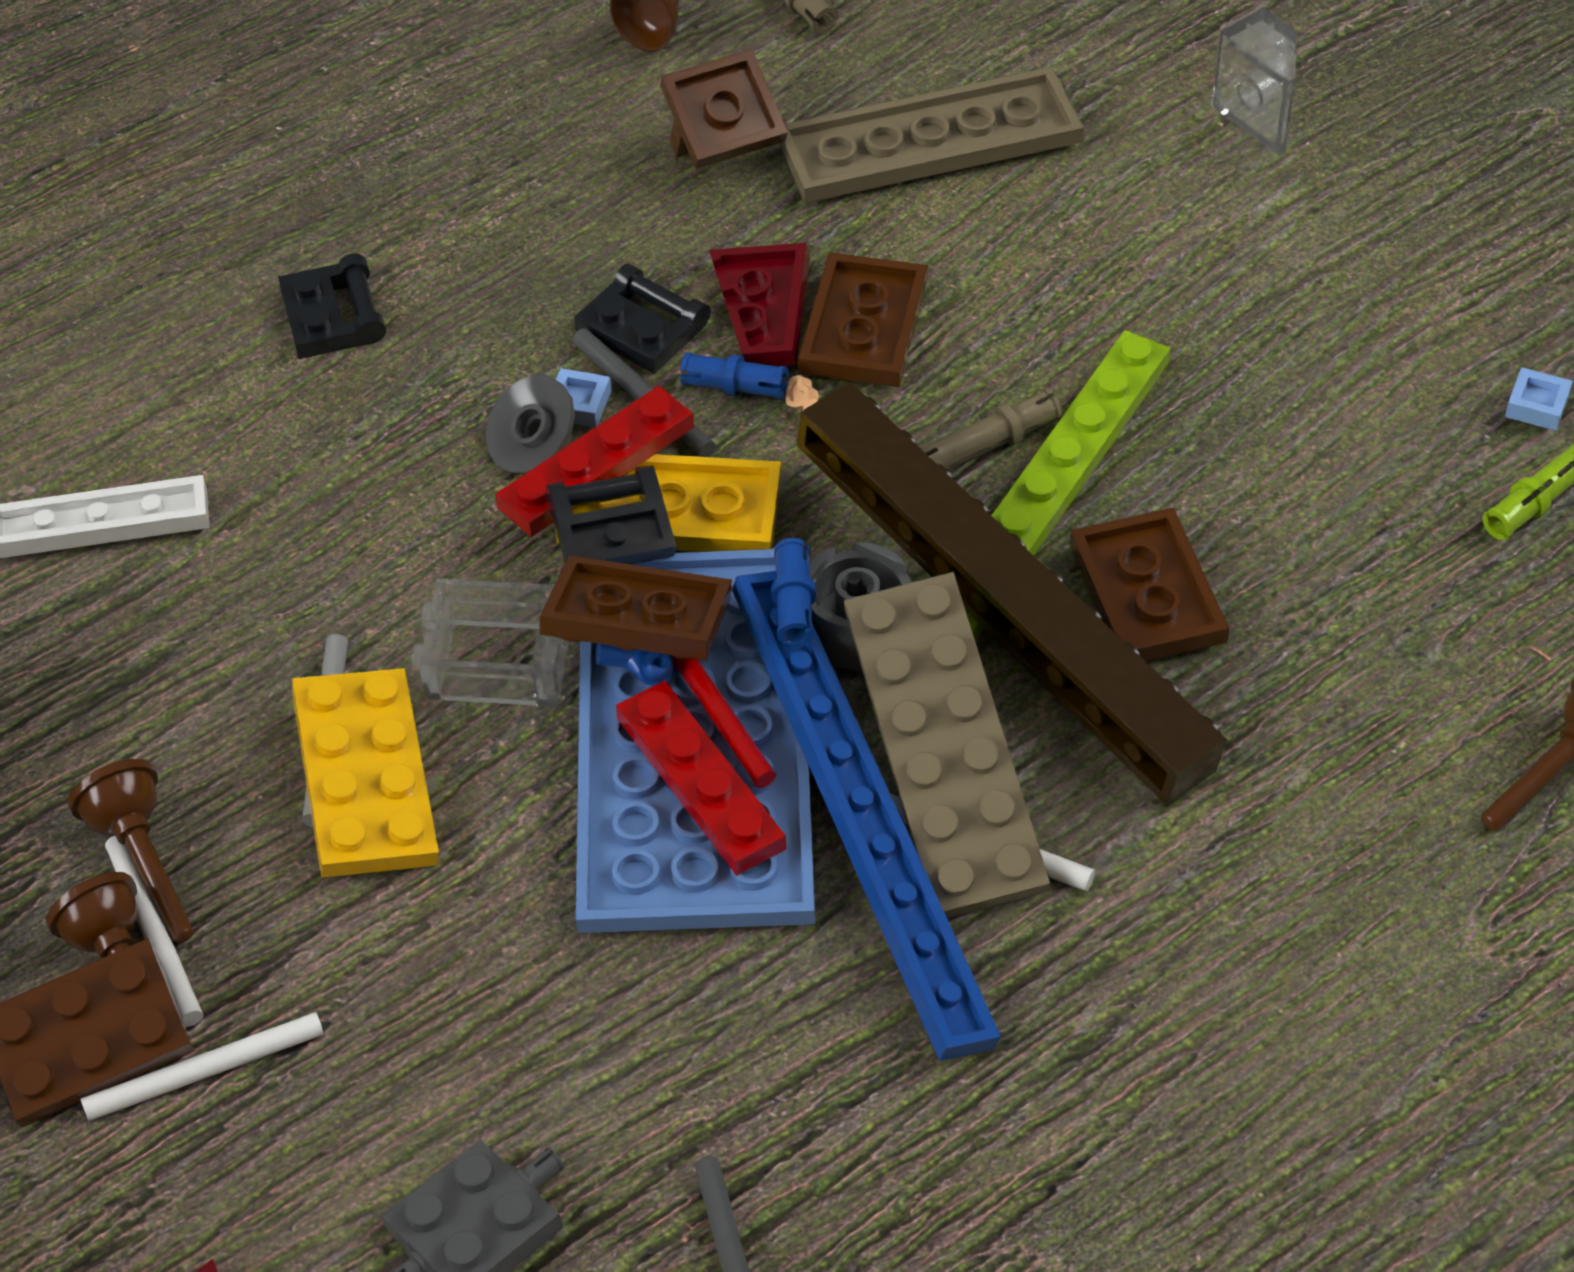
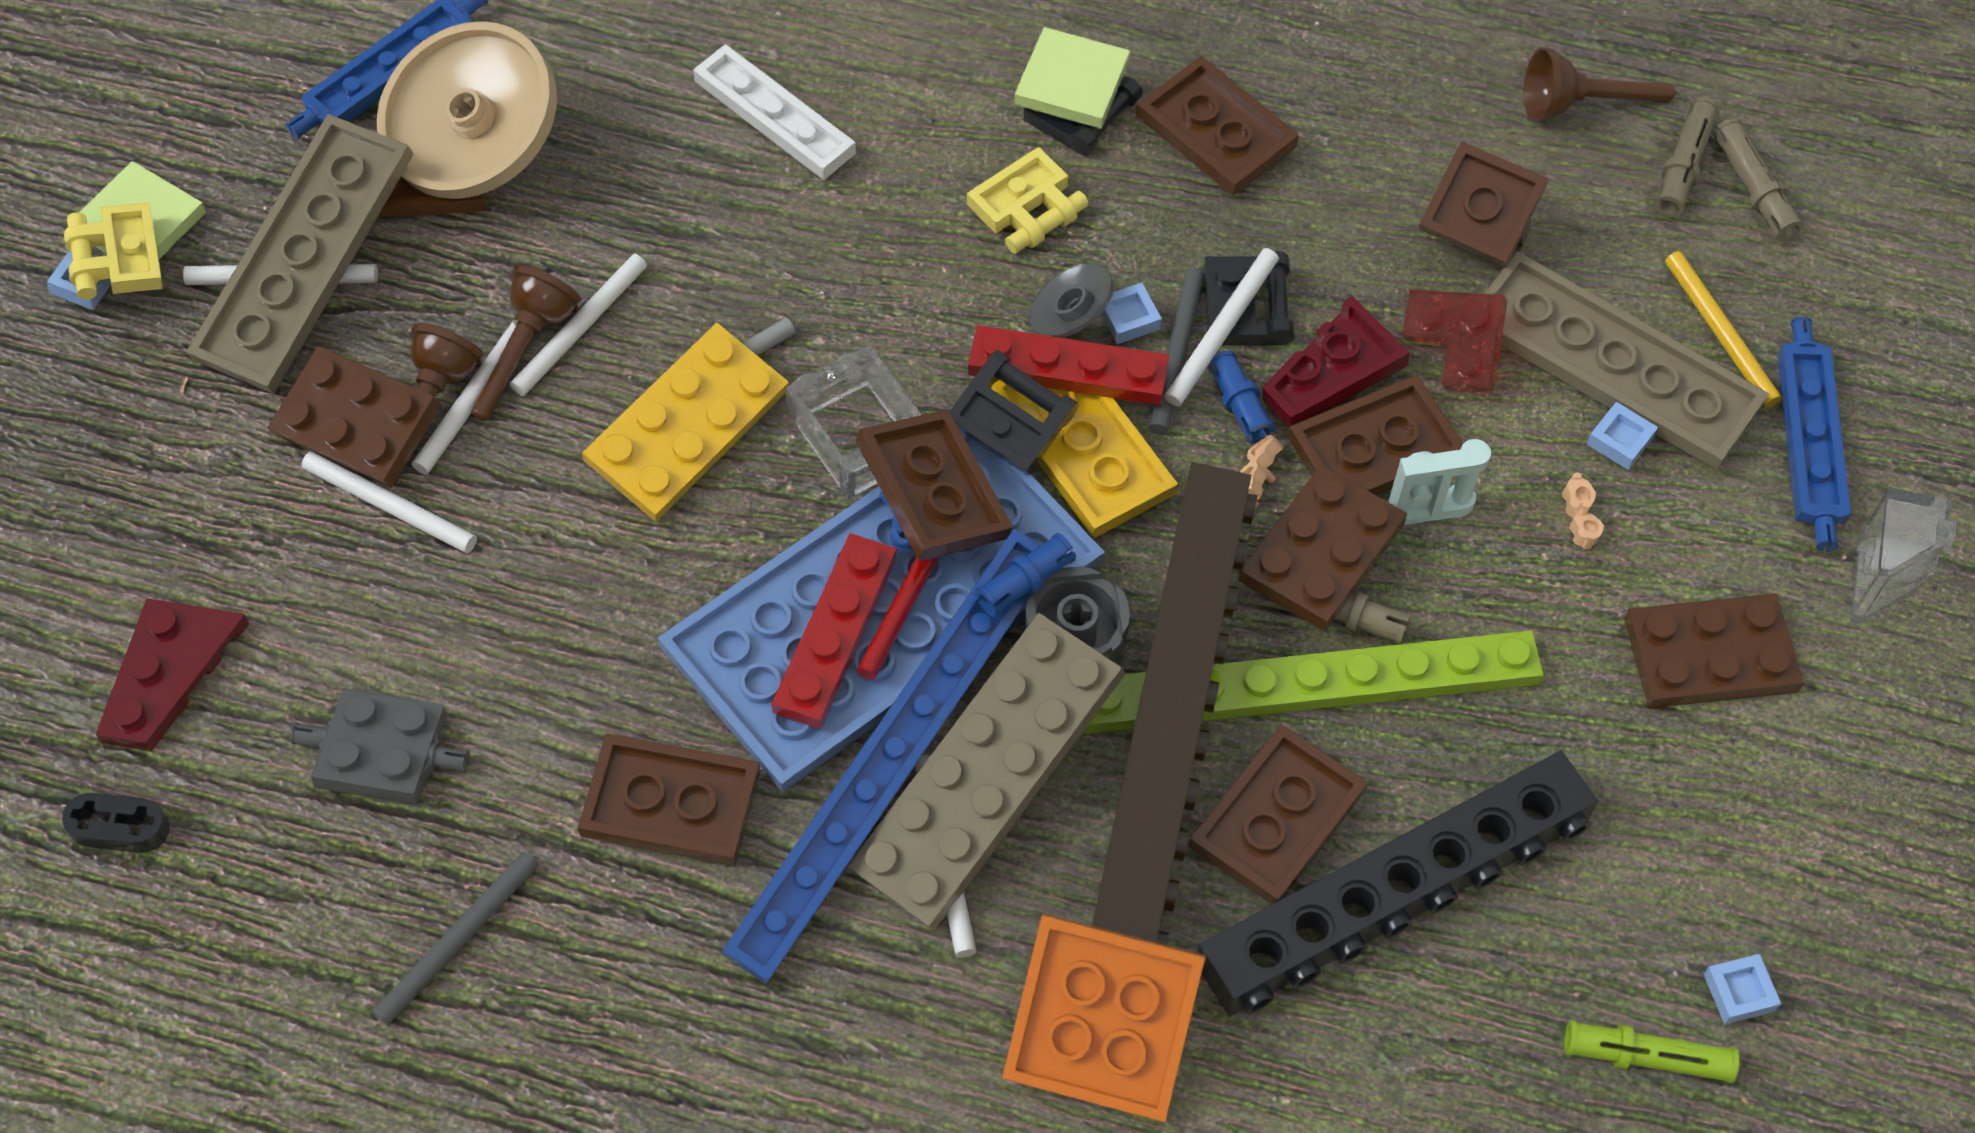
camera: 50 degrees right, 10 degrees up
(166, 804) = (578, 325): none -> white bar
(309, 287) = (1072, 77): none -> yellowish green tile
(375, 395) = (1020, 189): none -> light yellow plate
(453, 232) = (1217, 125): none -> reddish brown plate
(661, 338) = (1221, 327): none -> white bar
(748, 1011) = (669, 799): none -> reddish brown plate
(821, 192) = (1469, 325): none -> clear red plate
(939, 397) = (1322, 547): none -> reddish brown plate
(949, 295) = (1425, 480): none -> light aqua plate
(950, 60) = (1721, 326): none -> yellow bar
(1002, 172) = (1622, 435): none -> light blue plate
(1037, 239) = (1579, 499): none -> light nougat piece
(1107, 68) = (1813, 434): none -> blue plate
(1235, 242) = (1713, 650): none -> reddish brown plate
(1246, 802) = (1104, 1017): none -> orange plate
(1277, 554) = (1547, 786): none -> black brick

